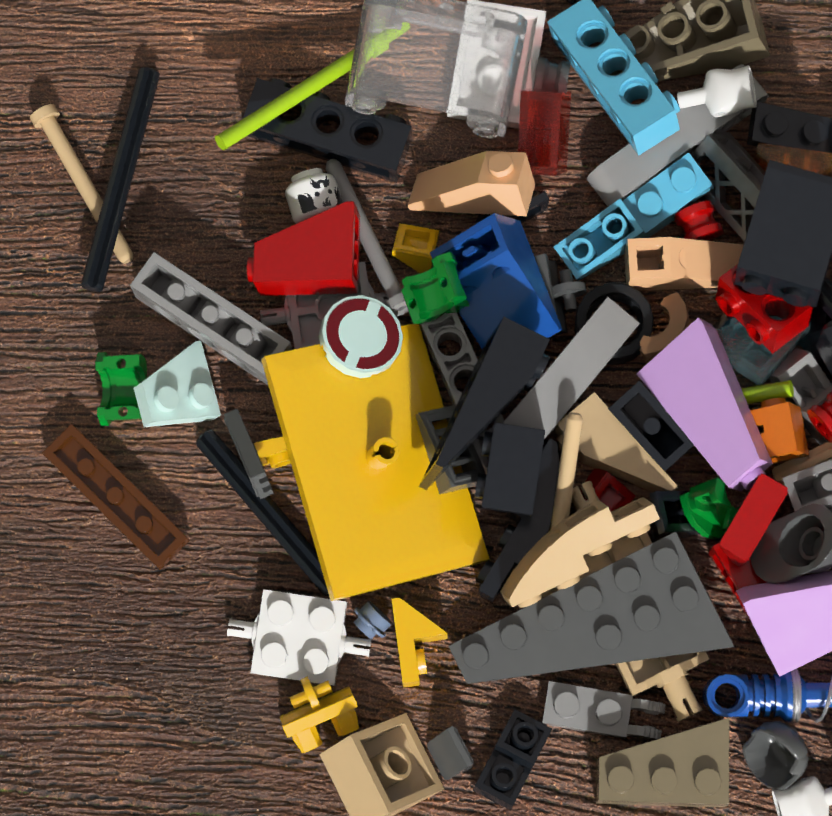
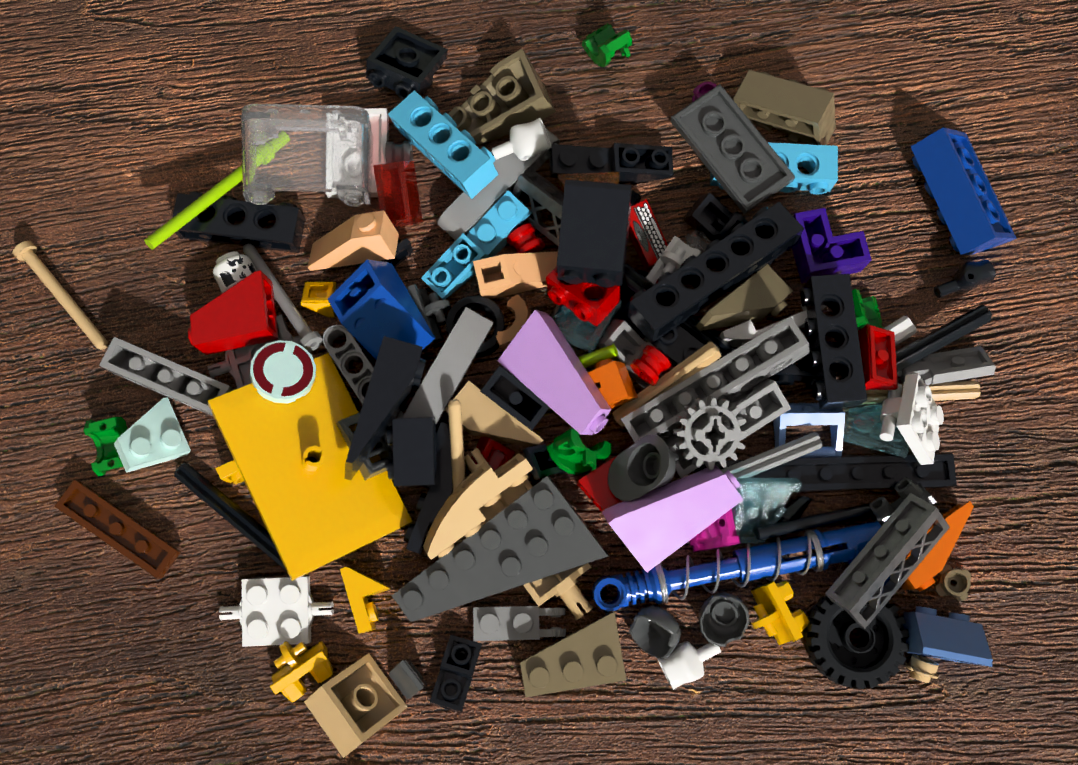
camera: 15 degrees left, 0 degrees up
(120, 179) = (86, 288): black axle -> none
(248, 454) = (216, 487): dark grey tile -> none
(371, 620) = (330, 586): sand blue plate -> none
(434, 291) = (333, 326): green piece -> none
(753, 519) = (604, 455): red slope -> none

